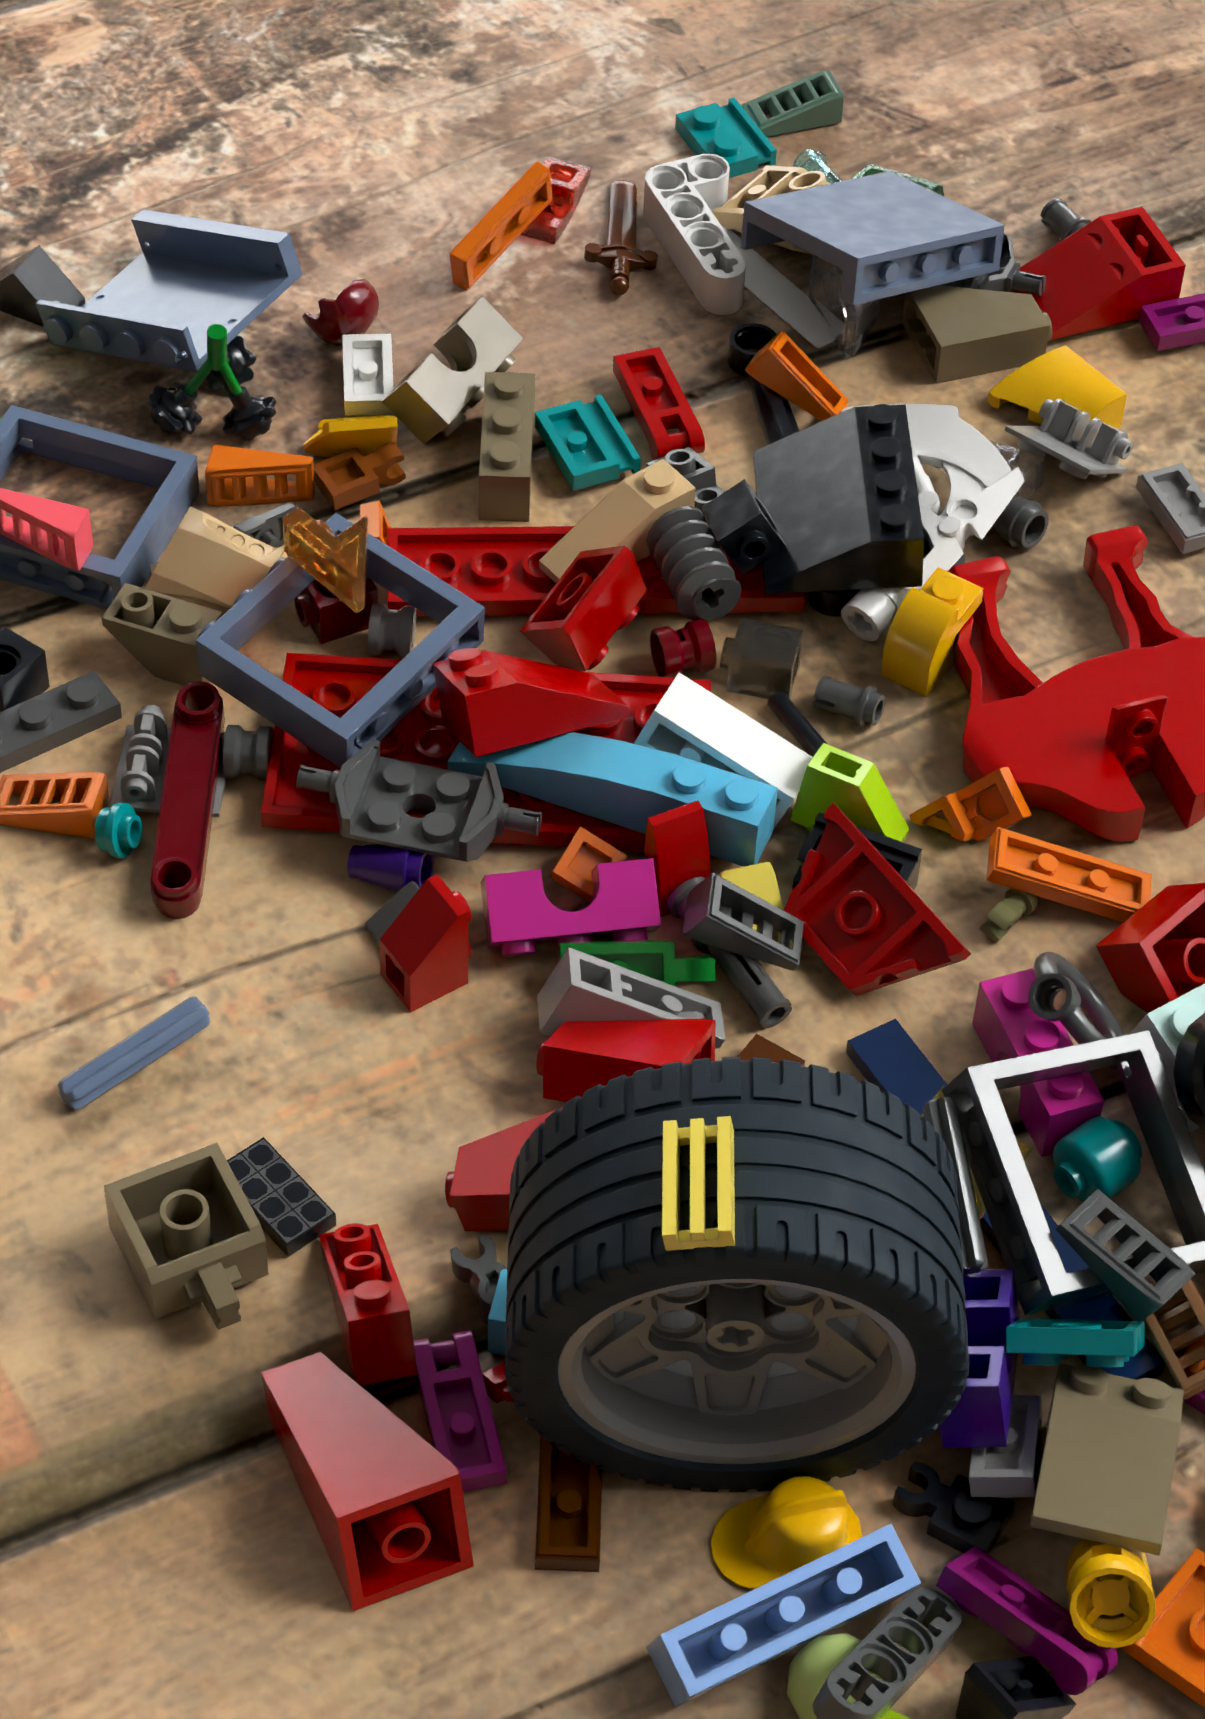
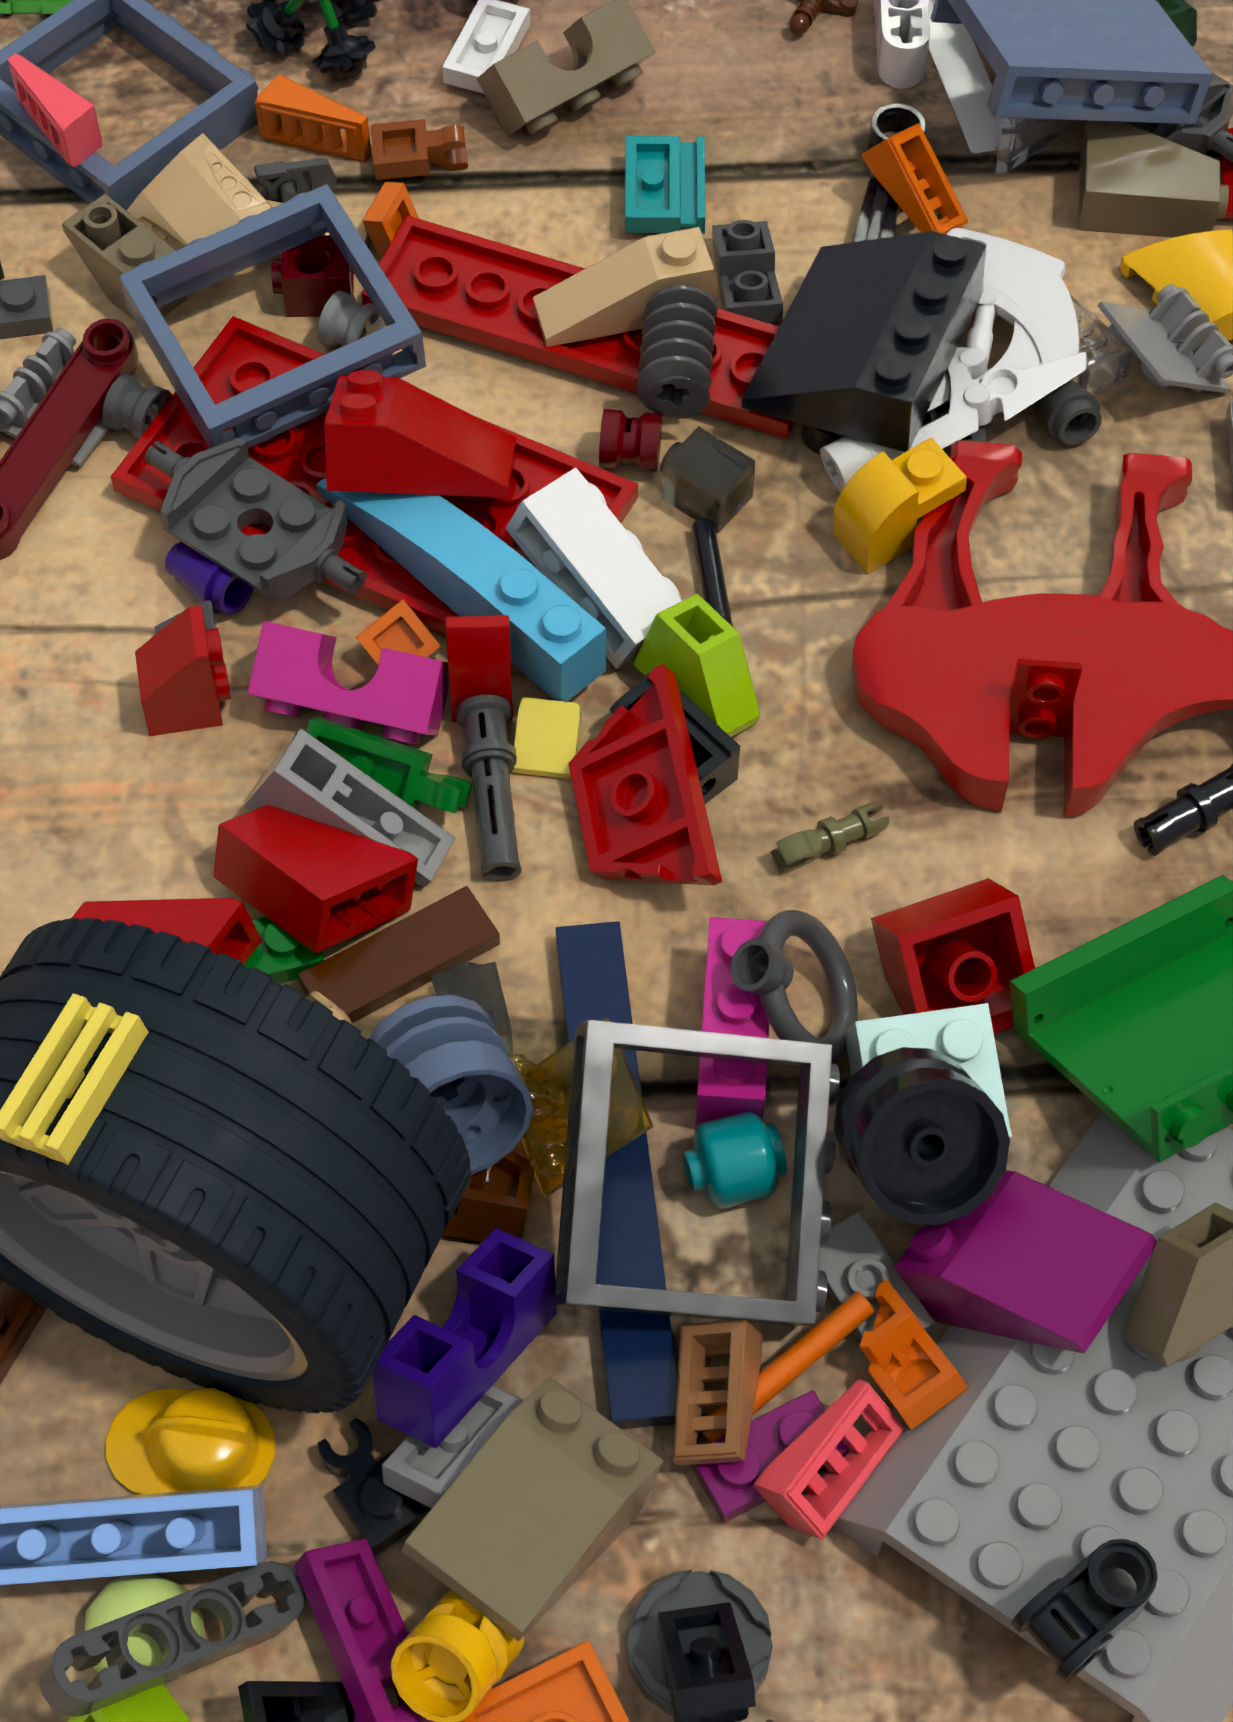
camera: 25 degrees right, 10 degrees up
(333, 561) = (294, 234): clear orange slope -> none
(360, 432) = (435, 104): yellow slope -> none
(506, 446) = (559, 180): dark tan arch -> none
(587, 608) = (541, 368): red slope -> none
(658, 402) = (763, 162): red plate -> none
(710, 922) = (521, 748): dark grey slope -> none
(743, 527) = (749, 327): black brick -> none
(850, 701) = (785, 562): dark grey pin -> none
(945, 1119) = (532, 1140): dark grey axle -> none
(977, 808) = (837, 719): orange slope -> none
(1051, 1340) = (574, 1357): teal plate -> none
(1066, 875) = (888, 828): orange tile -> none
(1125, 1283) = (701, 1299): dark grey slope -> none

